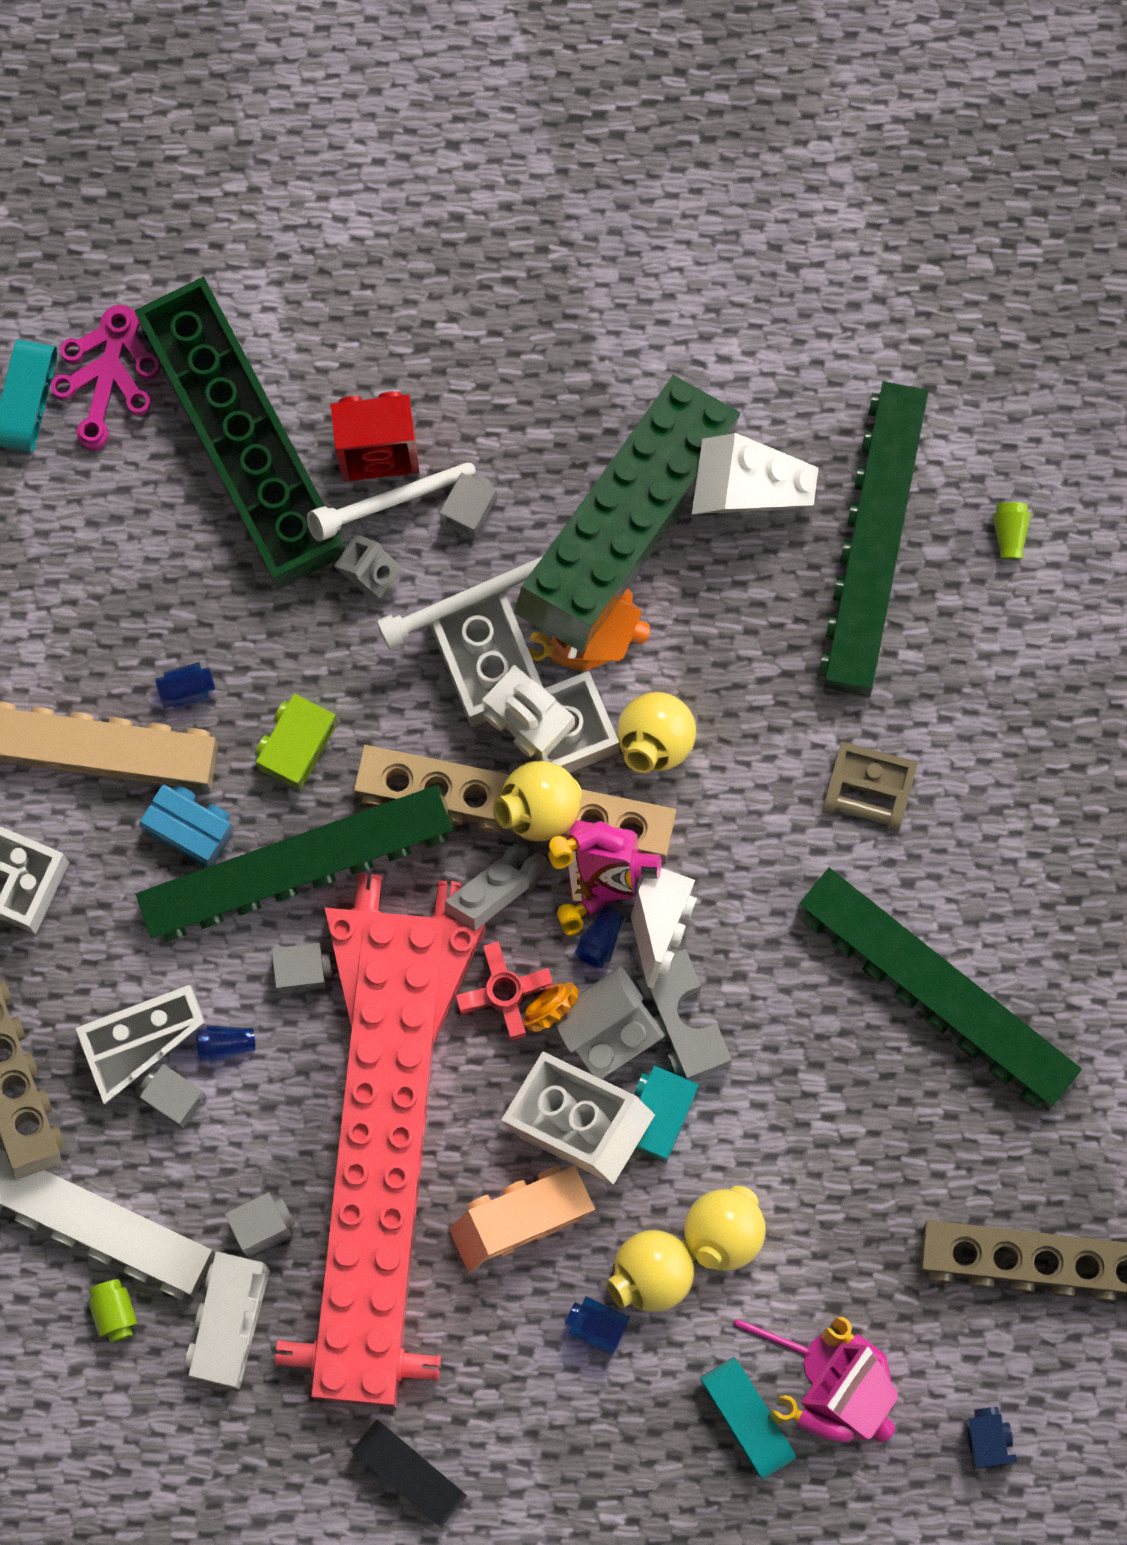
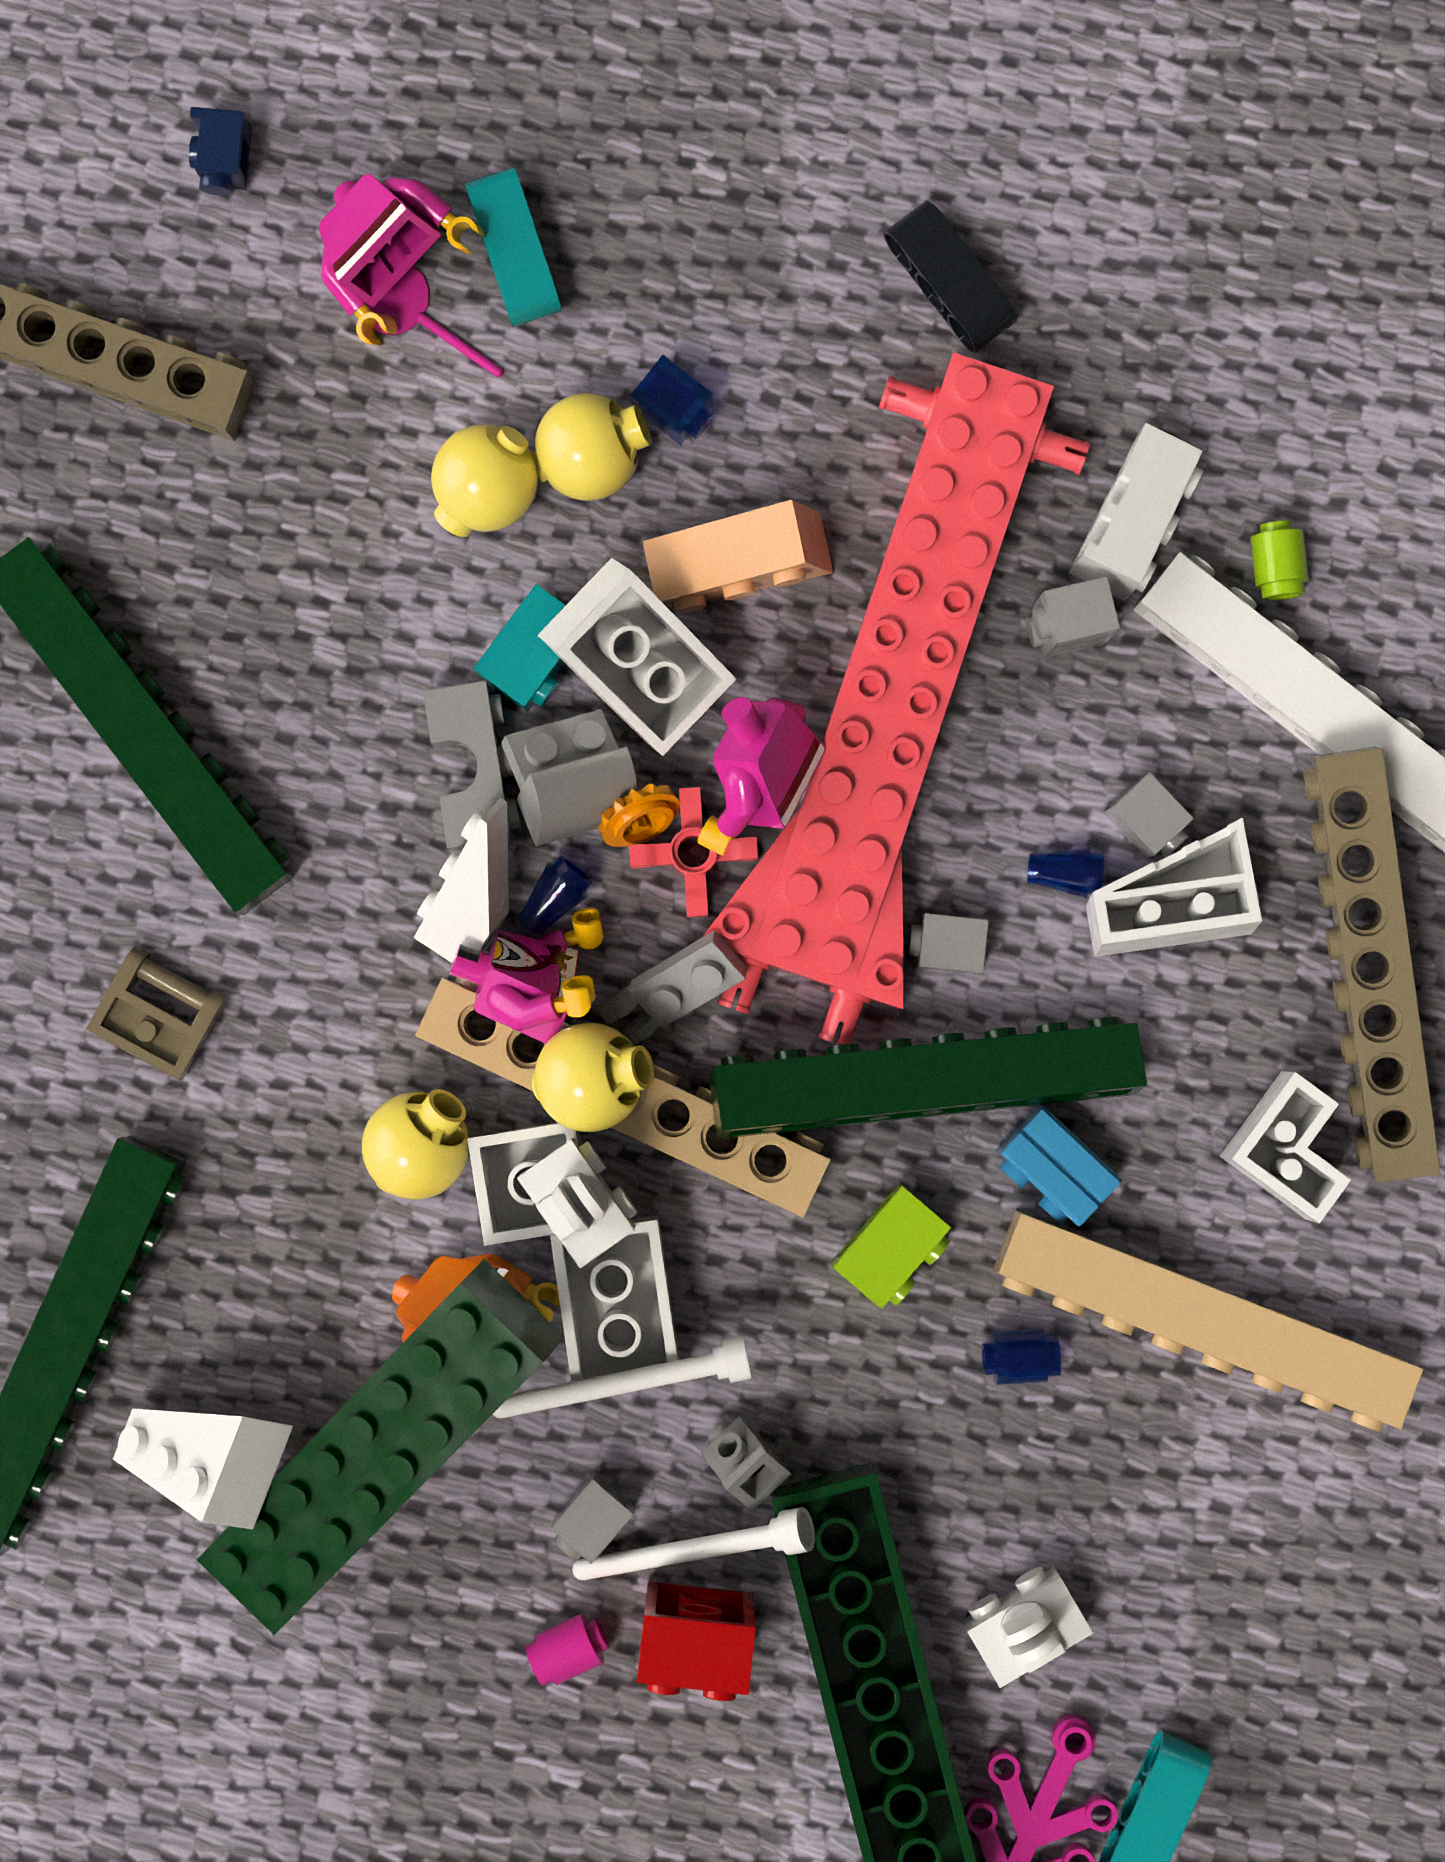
camera: 175 degrees left, 10 degrees up
(142, 501) = (1026, 1625): none -> white brick
(465, 412) = (567, 1650): none -> dark pink brick
(466, 1053) = (762, 766): none -> dark pink torso

